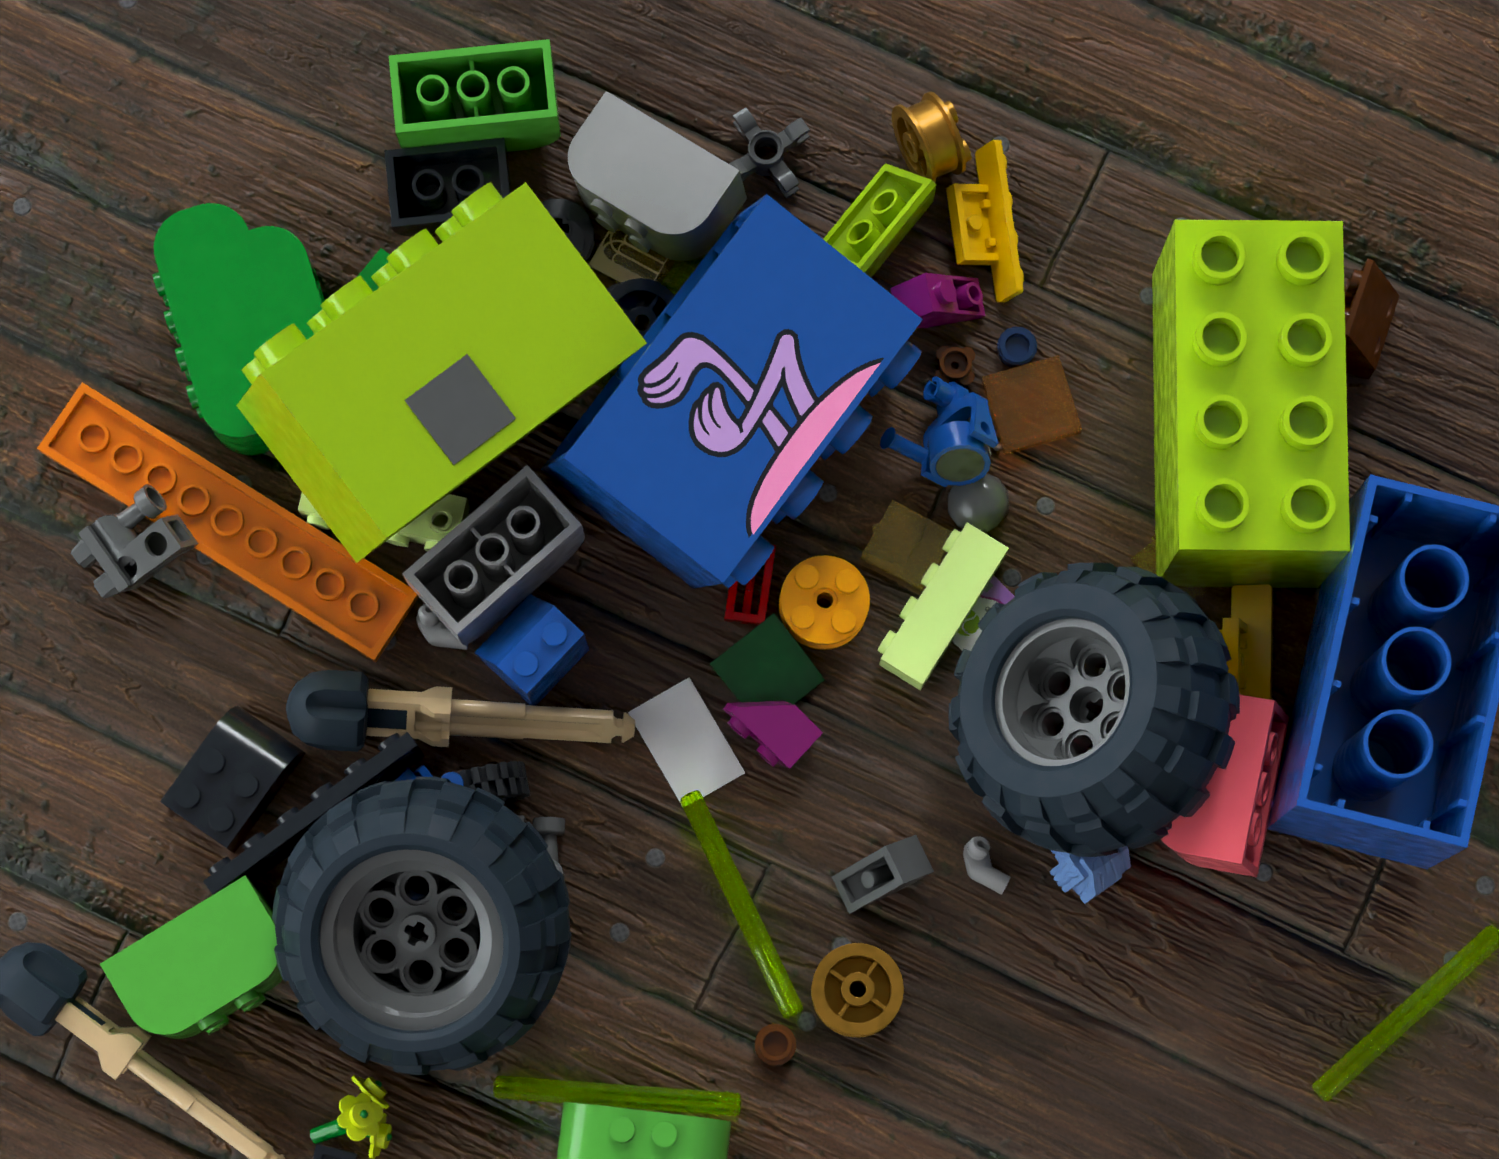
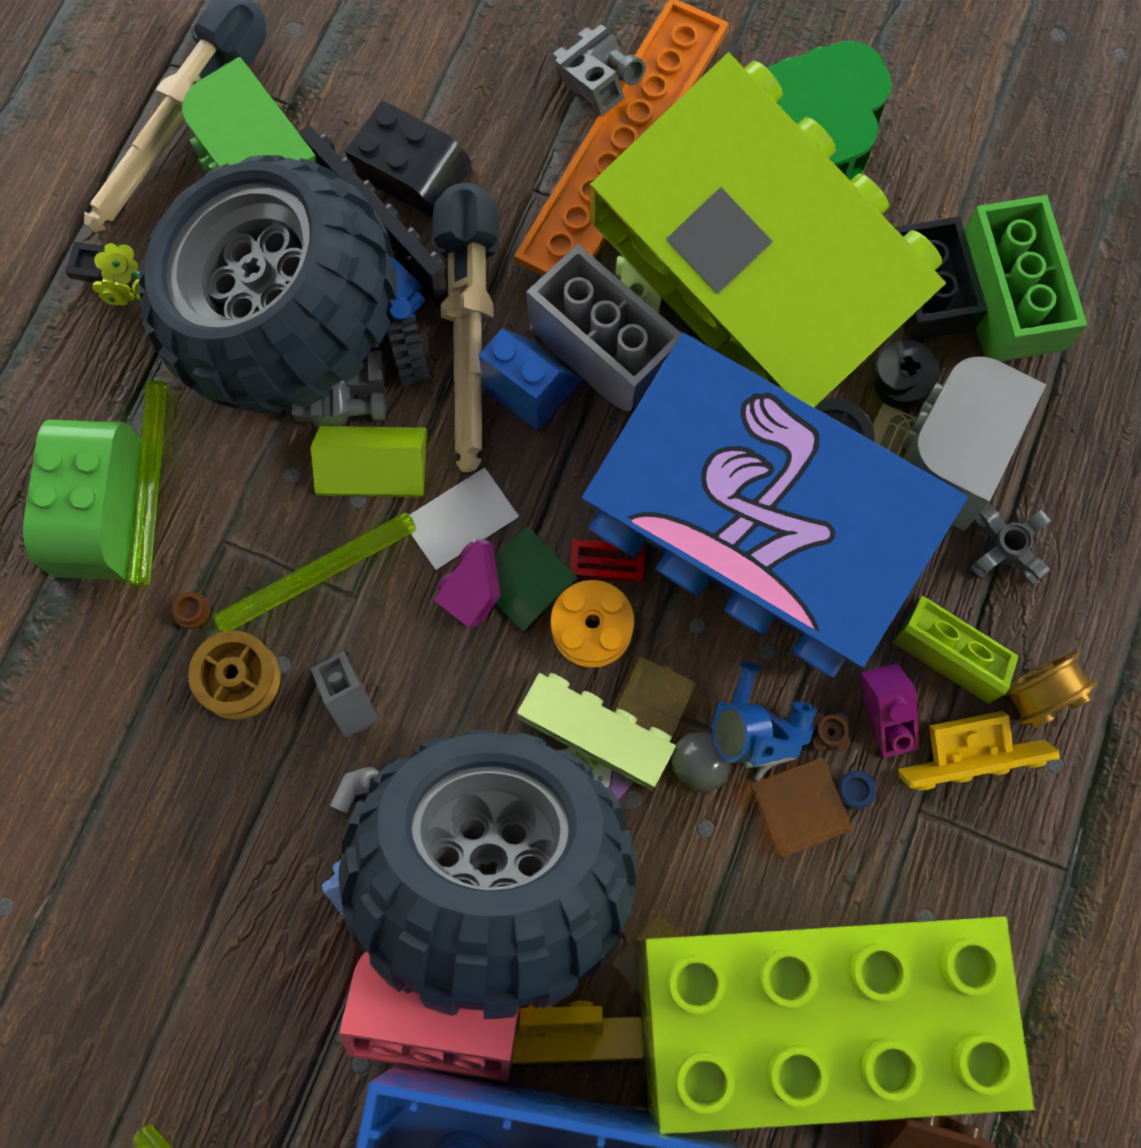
camera: 85 degrees right, 5 degrees down
(611, 838) = (369, 461): none -> lime slope

